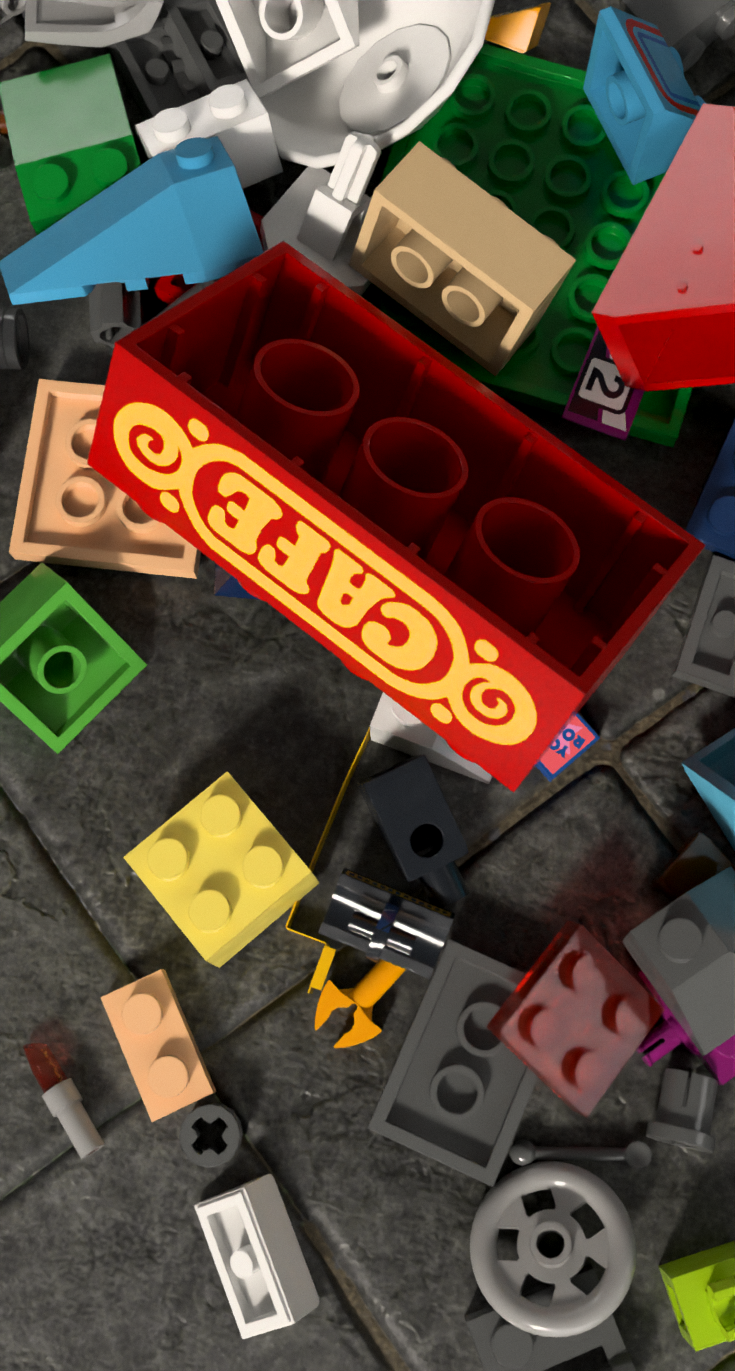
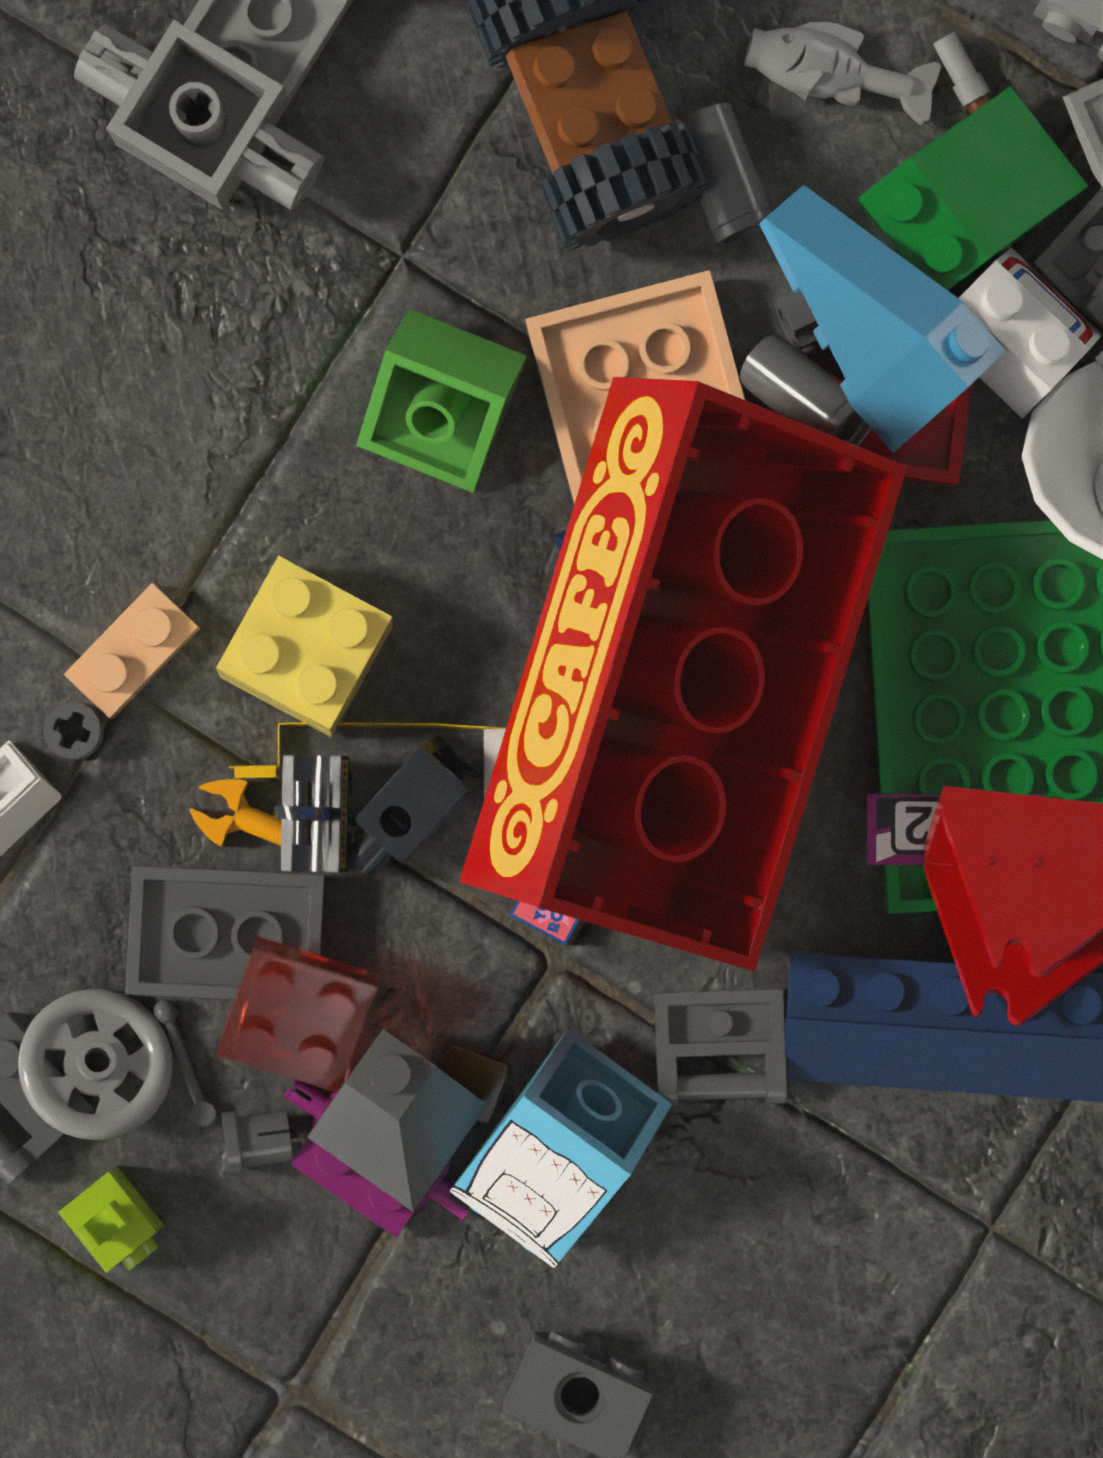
camera: 60 degrees right, 10 degrees up
(63, 1099) = (52, 586): light grey piece -> none
(326, 211) = (965, 497): white piece -> none
(458, 258) = (963, 641): tan brick -> none

